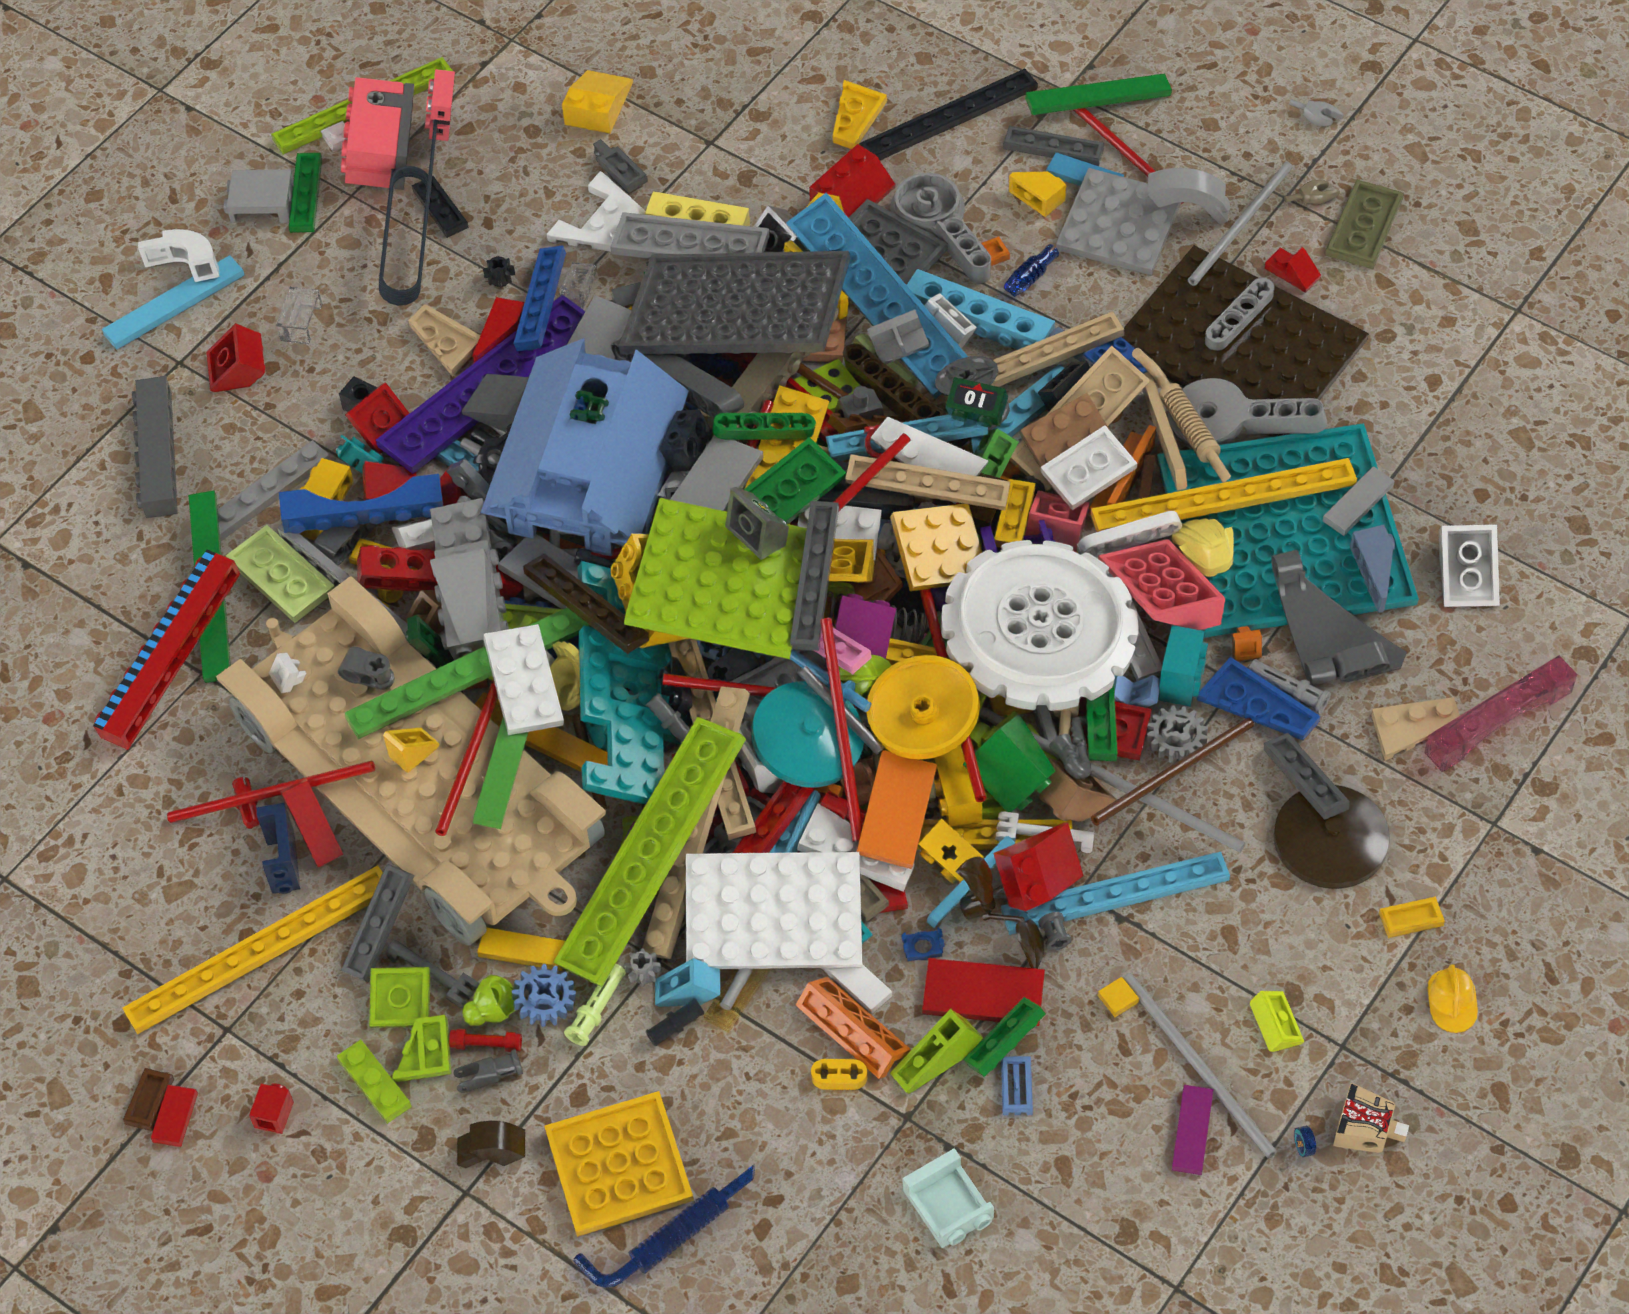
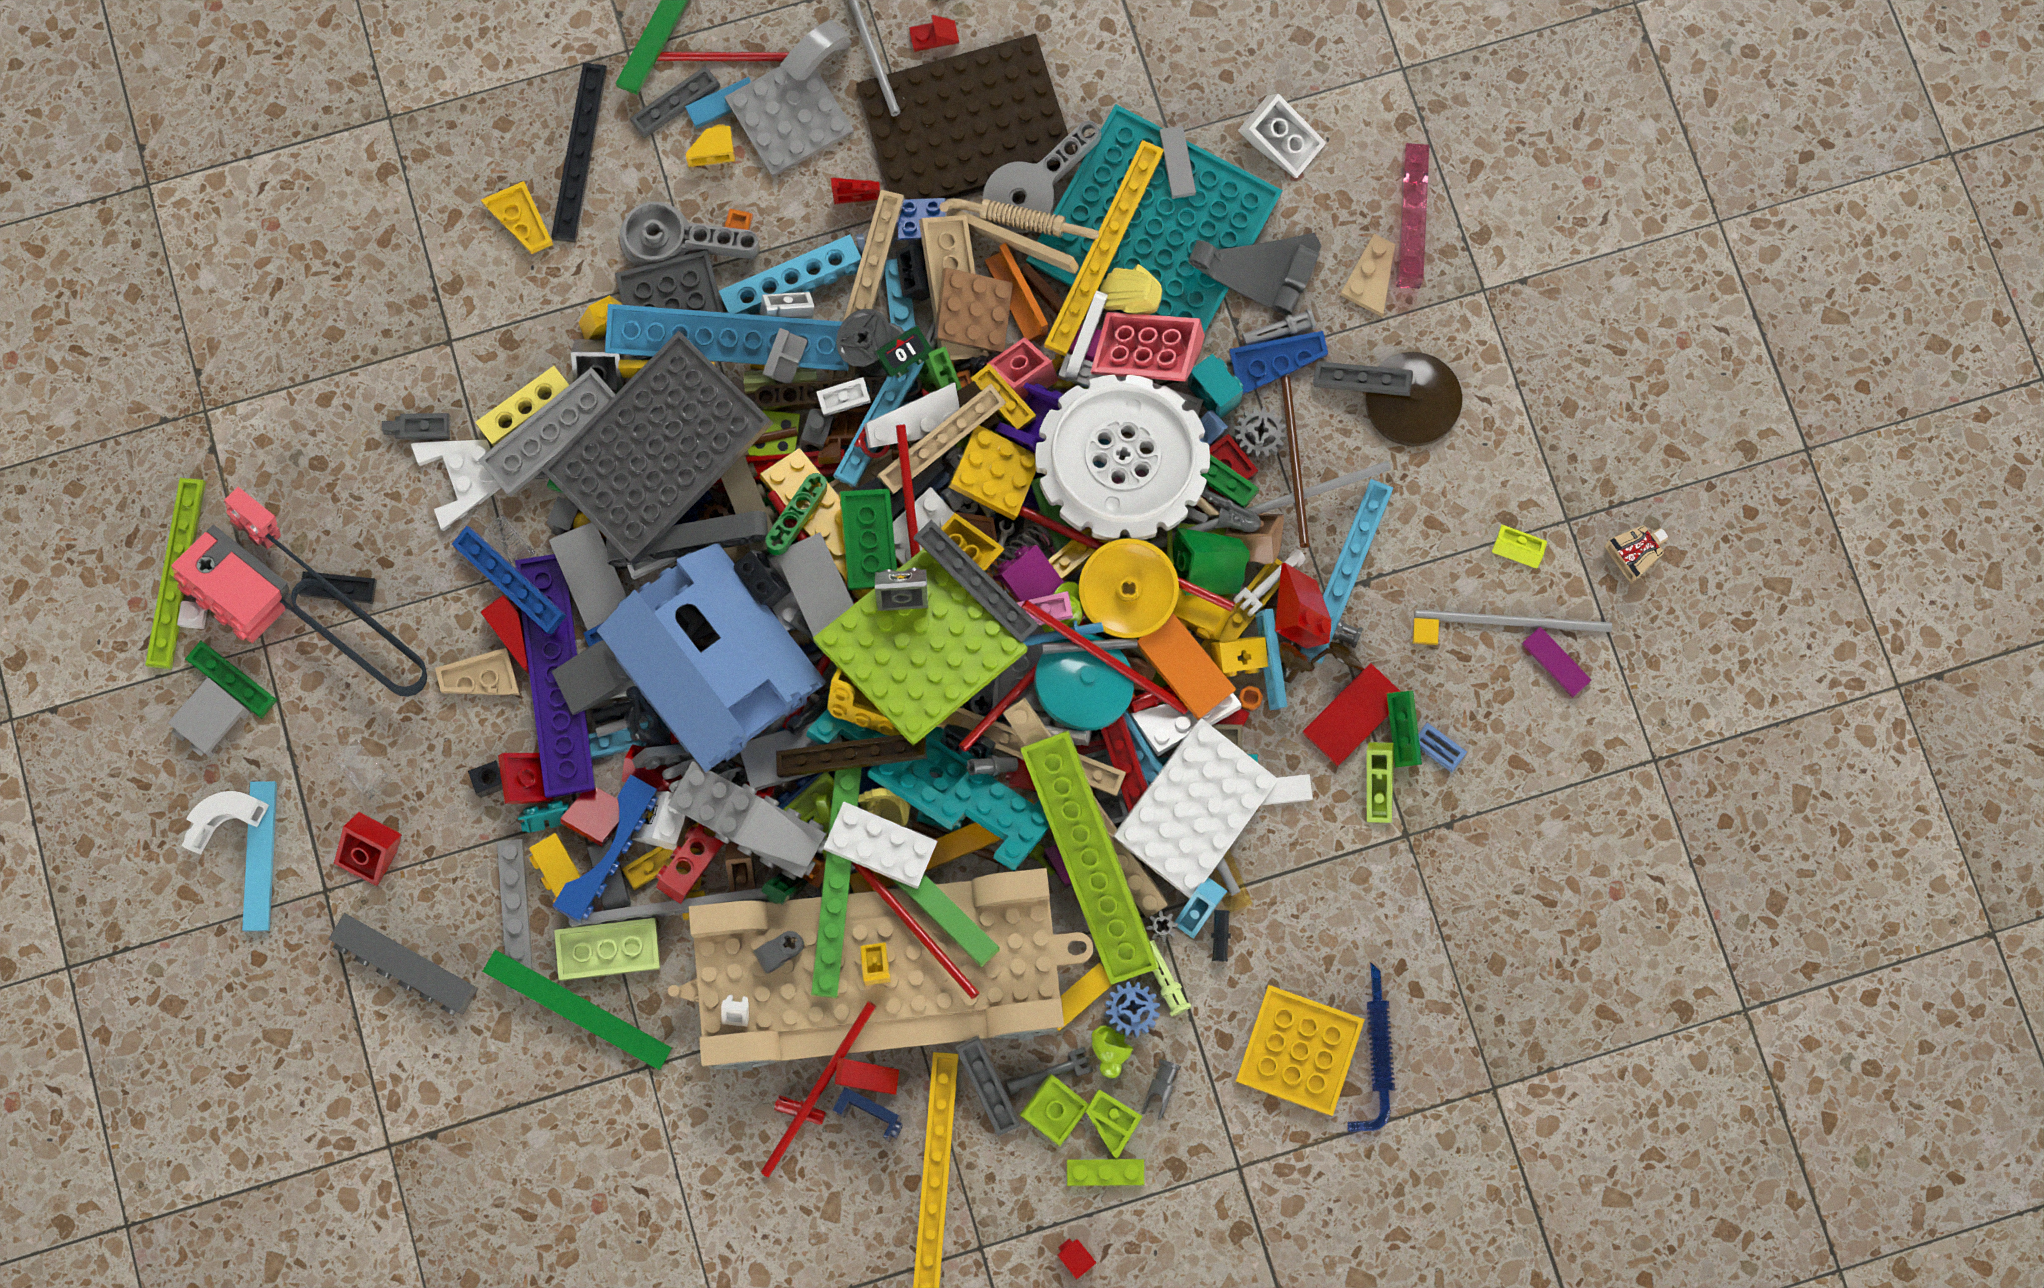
camera: 55 degrees left, 20 degrees up
(166, 649) = (616, 1079): red brick -> none
(459, 1039) = (1148, 1057): red bar -> none
(491, 1141) = (1223, 1127): dark brown brick -> none
(499, 271) = (443, 588): black gear -> none
(588, 413) = (708, 620): dark green piece -> none
(595, 101) = (333, 392): yellow slope -> none
(839, 1074) = (1338, 852): yellow beam -> none
(851, 1027) = (1316, 823): orange fence -> none
(855, 179) = (591, 271): red slope -> none
(901, 600) = (1005, 533): none -> light grey hand
(902, 398) = (843, 396): none -> white plate
(921, 895) = (1250, 698): none -> orange tile
(933, 937) = (1296, 719): blue piece -> none
(947, 1199) = (1491, 856): light aqua panel -> none
(1030, 271) = (782, 212): clear blue hinge -> none
(1088, 467) = (1007, 317): white plate -> none
(1093, 297) = (854, 190): none -> red wing
(1242, 315) = (950, 105): light grey beam -> none
(1246, 644) = (1225, 329): orange tile -> none
(1305, 1141) = (1621, 600): clear blue tile -> none
(1373, 555) = (1235, 192): sand blue slope -> none
(1411, 917) = (1512, 399): yellow tile -> none
(1452, 1000) = (1588, 425): yellow piece -> none

